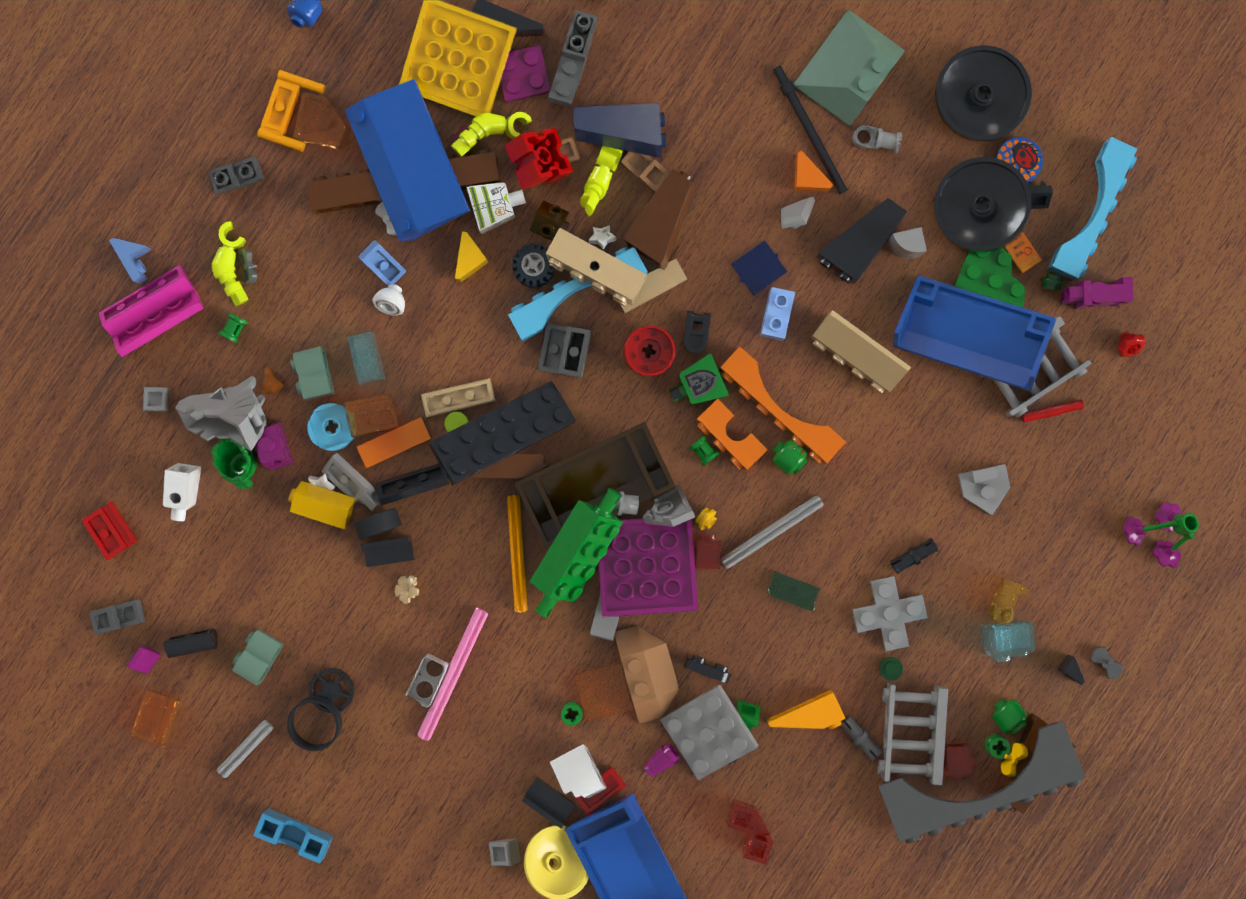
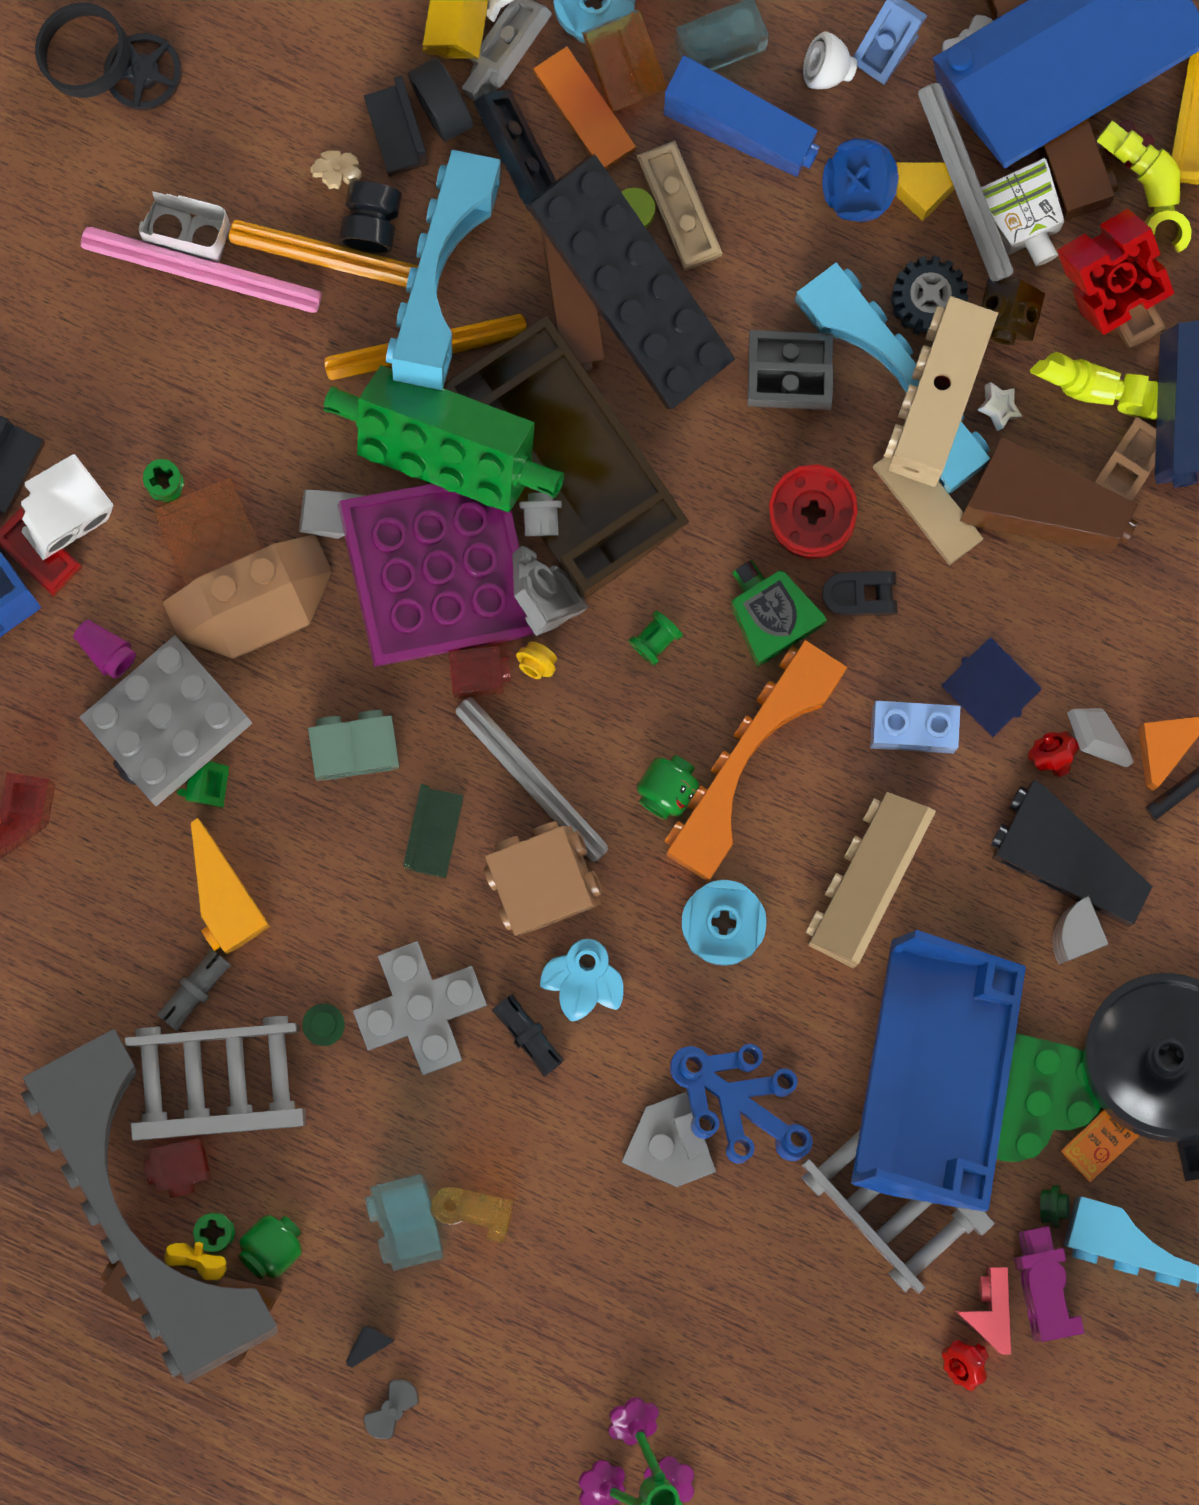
camera: 80 degrees right, 5 degrees down
(415, 355) = (739, 118): none -> blue slope
(437, 518) = (465, 200): none -> medium azure arch
(438, 573) = (369, 222): none -> black wheel
(455, 600) = (320, 253): none -> light orange axle
(462, 293) = (860, 180): none -> blue tile
(474, 234) = (965, 182): none -> light grey axle
(716, 672) = (272, 721): black plate -> none
(739, 628) = (354, 746): none -> sand green brick
(743, 452) = (708, 648): orange arch -> none
(802, 239) = (1054, 752): none -> red piece
(831, 535) = (542, 878): none -> medium nougat brick
(860, 427) = (707, 904): none -> medium azure plate
(891, 520) = (580, 985): none -> medium azure plate
(968, 447) = (735, 1100): none -> blue plant
(1052, 411) = (824, 1244): red piece -> none
(1109, 325) = (993, 1323): none -> coral slope

